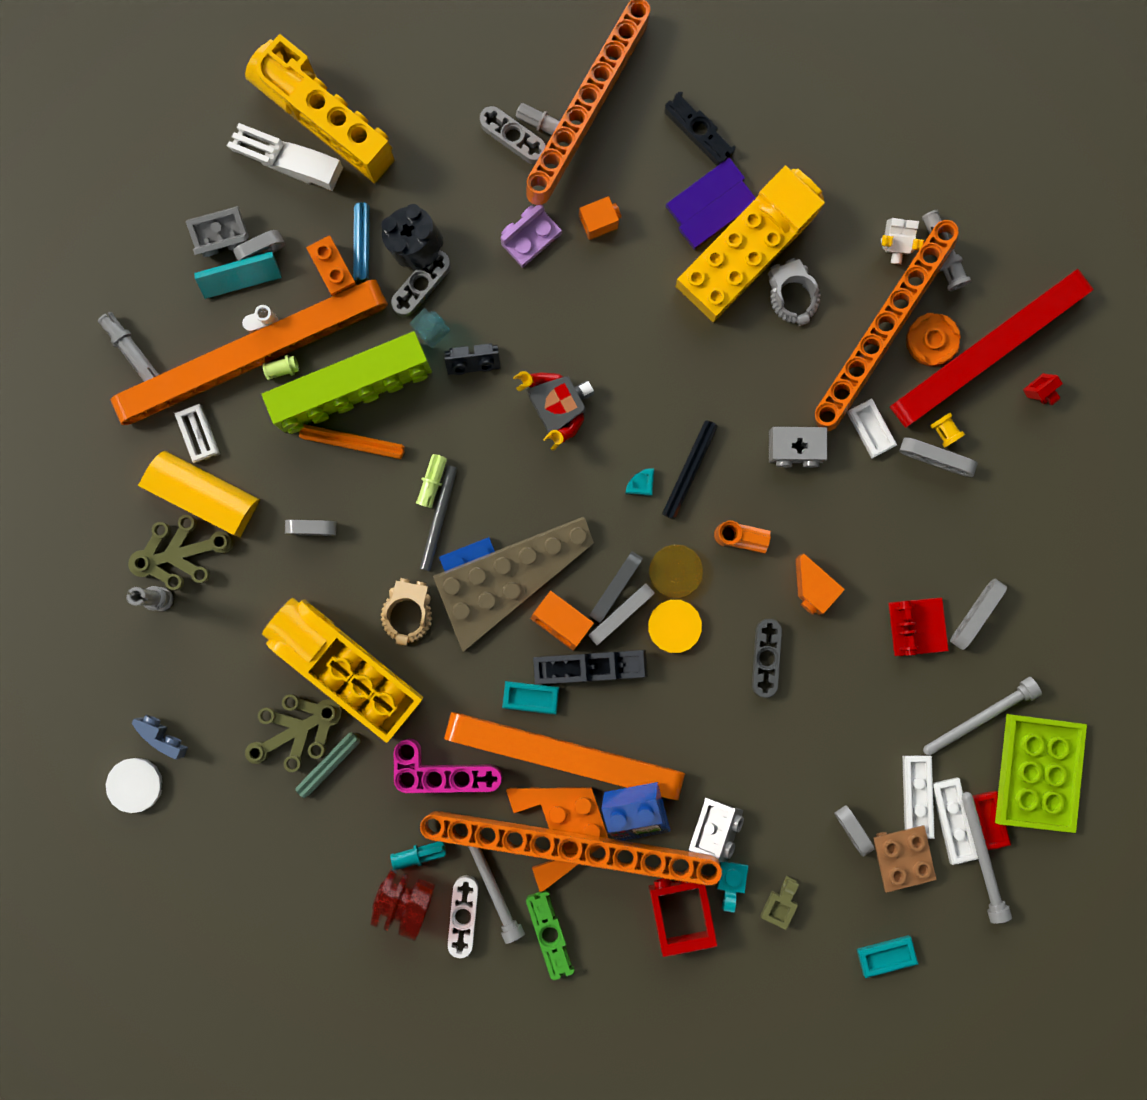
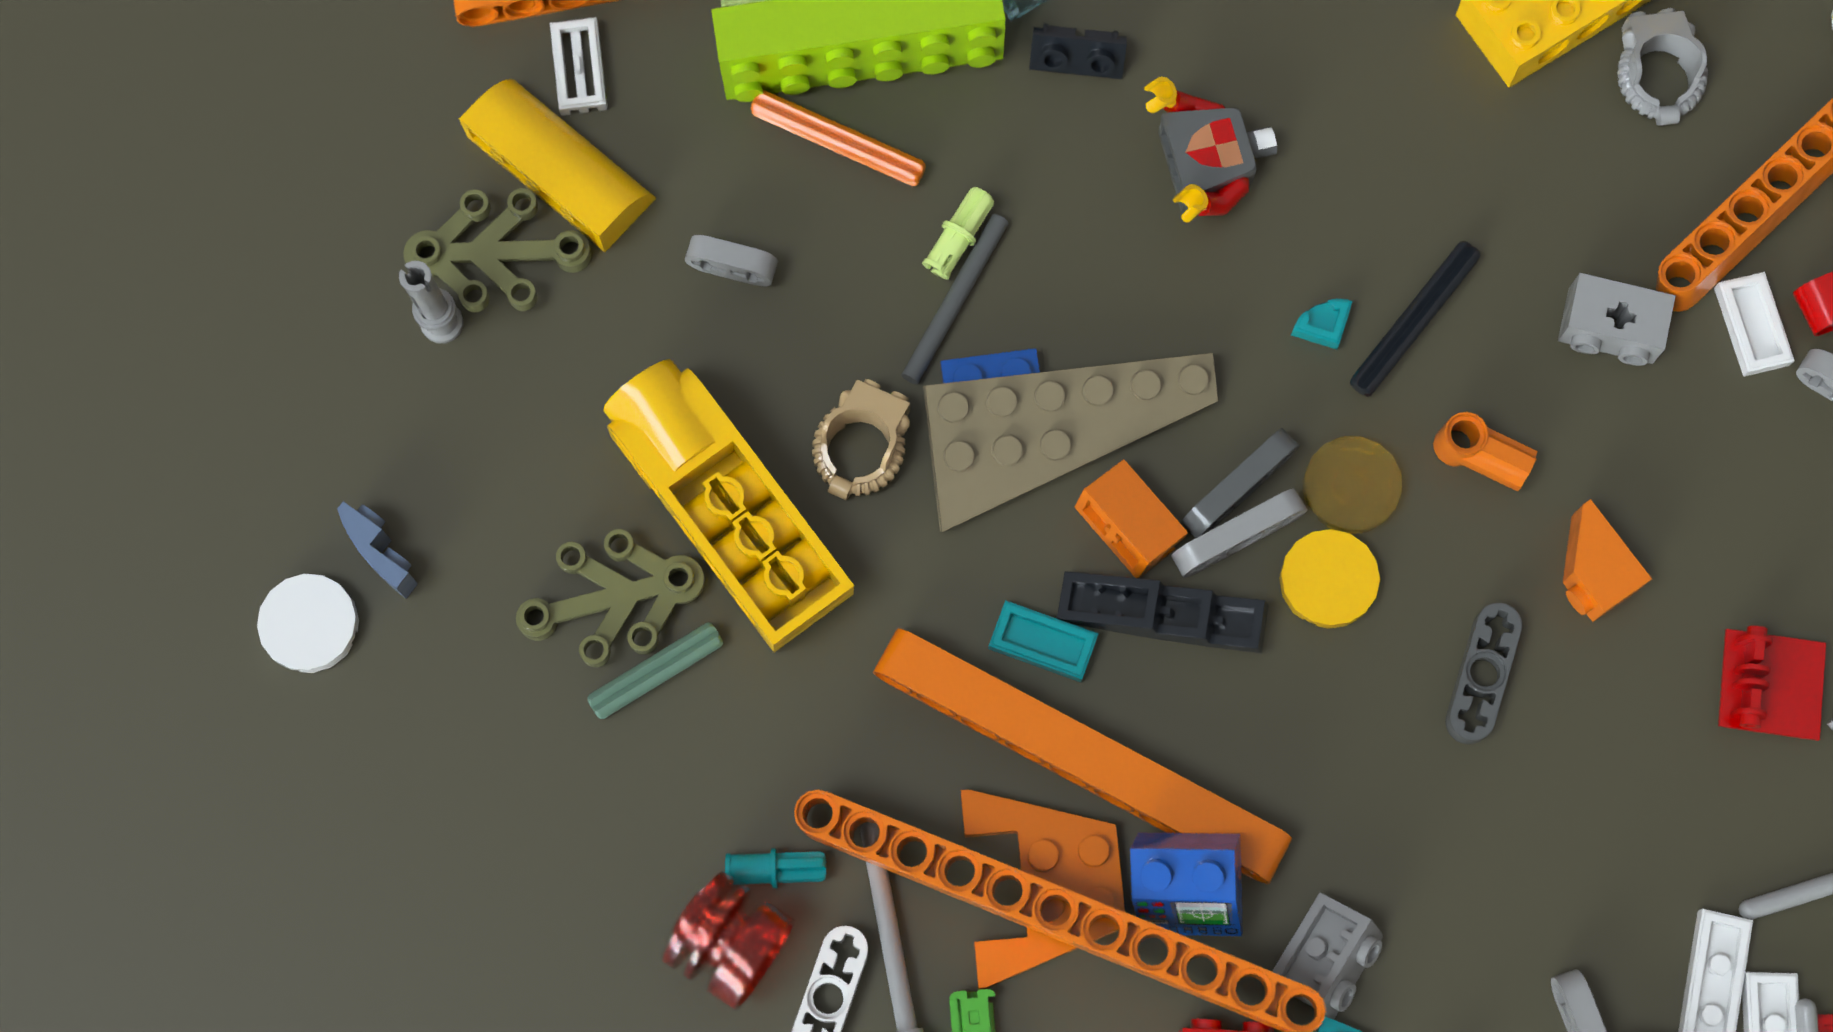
camera: 20 degrees right, 10 degrees down
(447, 772) = (867, 731): dark pink beam -> none

